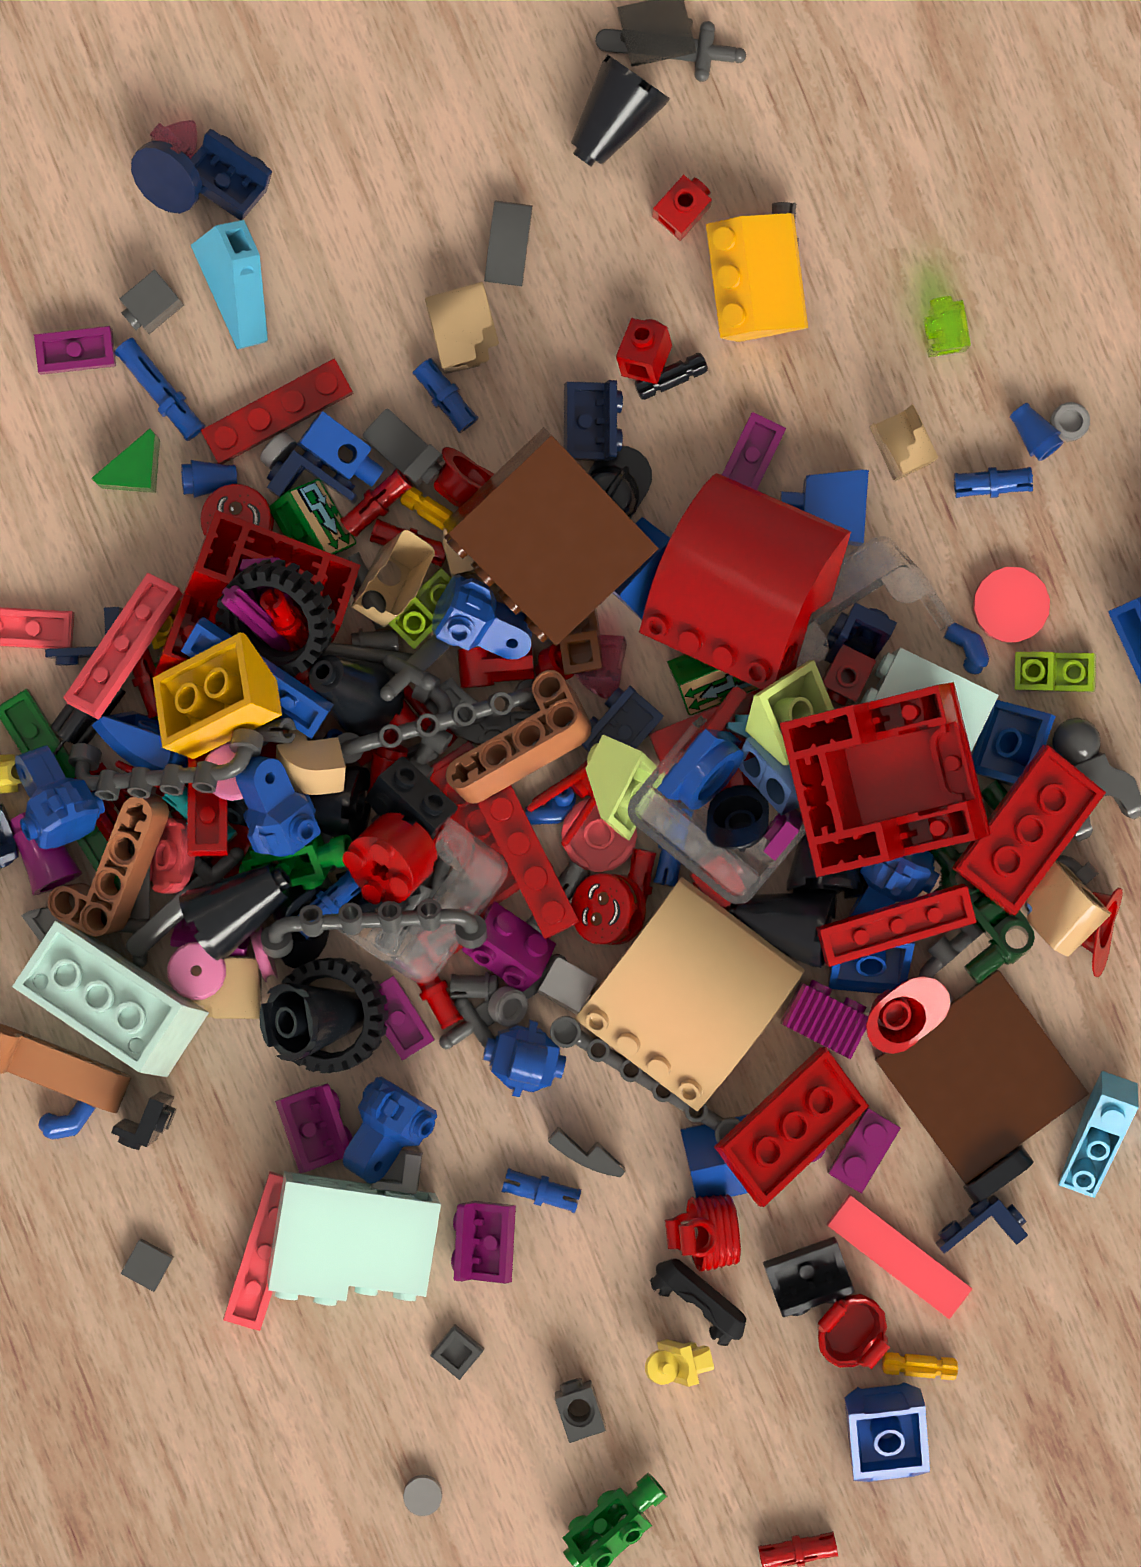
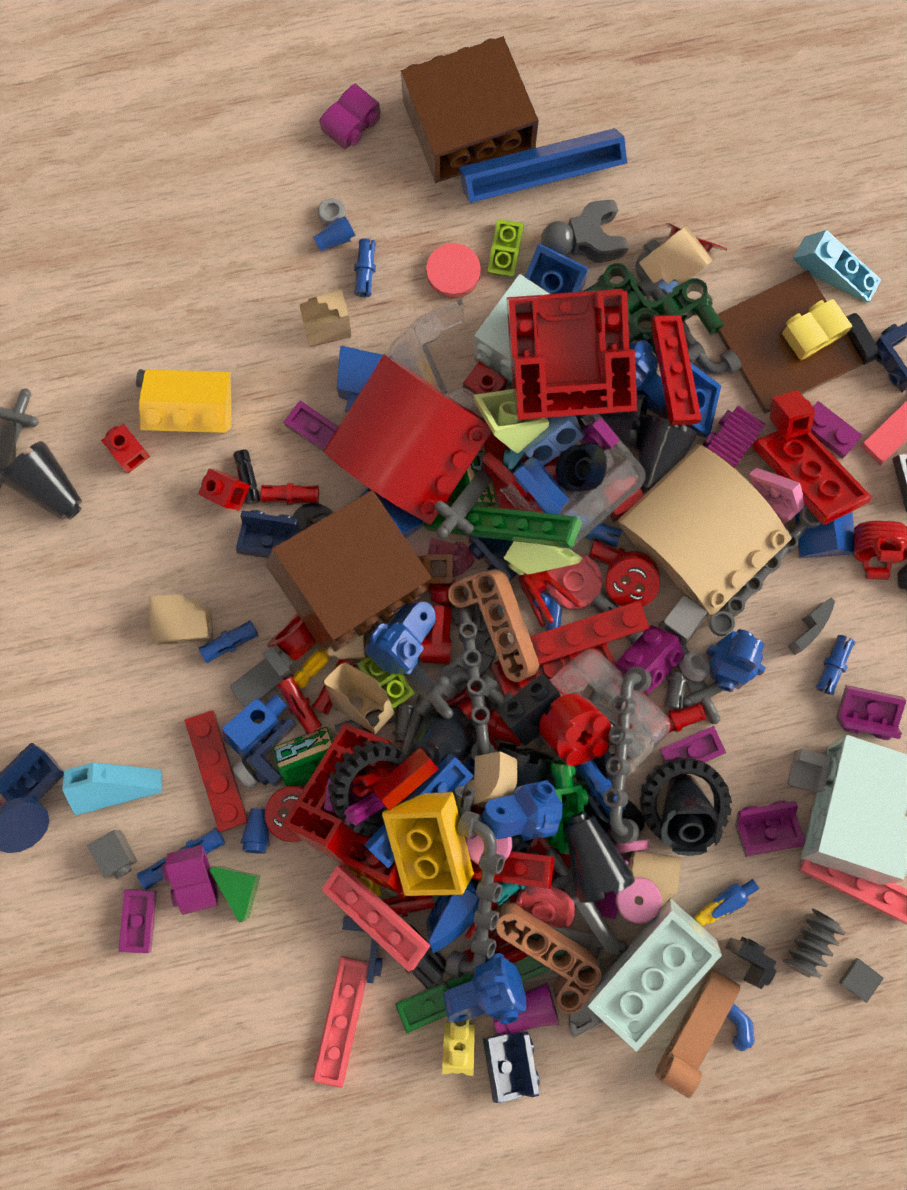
camera: 80 degrees left, 10 degrees down
(134, 407) = (191, 880): none -> magenta brick
(179, 1200) = (814, 945): none -> dark grey piece
(215, 1085) = (727, 902): none -> blue piece
(288, 653) = (405, 779): none -> red slope
(390, 1122) = (772, 767): blue piece -> none
(508, 243) = (125, 577): dark grey slope -> none
(645, 731) = (517, 526): none -> green tile
(655, 665) = (457, 512): none -> dark grey sword
(656, 438) = (289, 494): none -> red pin
(751, 1085) = (780, 493): none -> bright pink slope
(861, 630) = (456, 364): dark blue bracket -> none
(870, 1092) = (792, 414): none -> red brick
(907, 1014) = (737, 380): piece -> none
(946, 327) = (249, 280): clear neon green brick -> none
(973, 647) = (485, 297): blue arm -> none
(998, 1112) = (816, 329): none -> light yellow brick
(1029, 830) = (615, 264): red tile -> none

